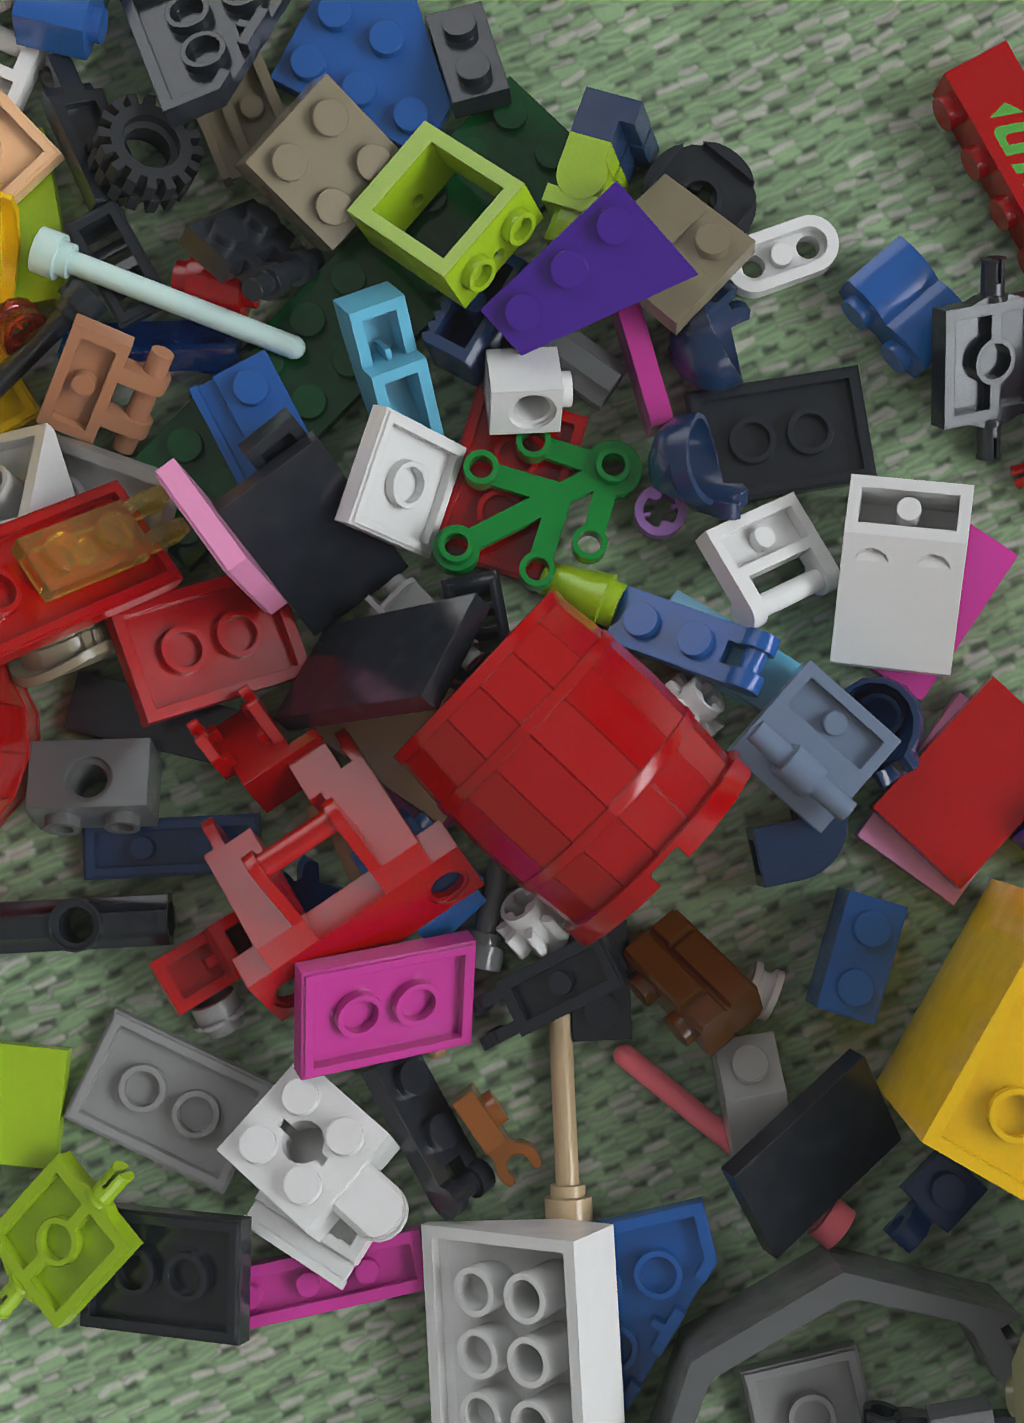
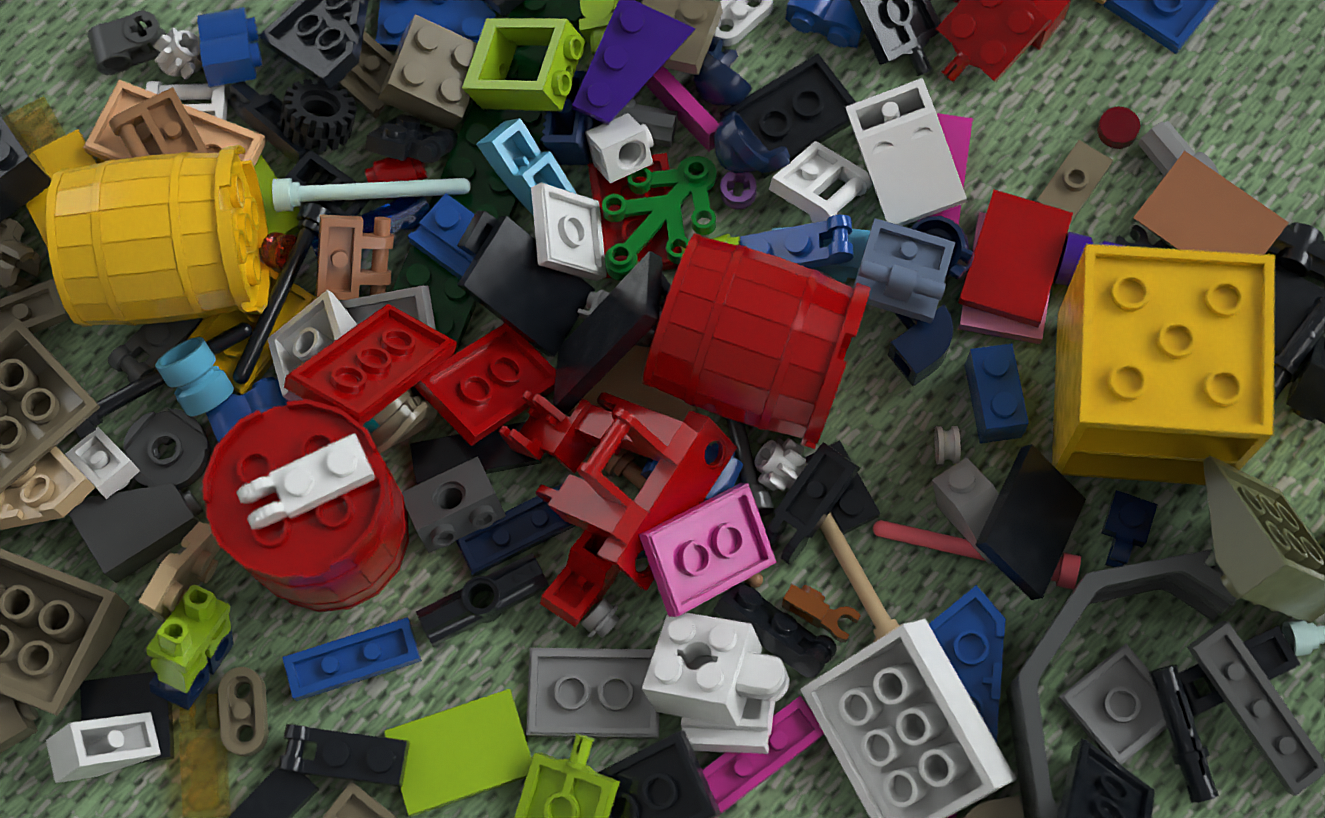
camera: 20 degrees left, 15 degrees down
(96, 544) = (397, 333): clear yellow hinge -> none
(219, 537) = (474, 298): bright pink tile -> none
(693, 982) = (900, 451): reddish brown brick -> none

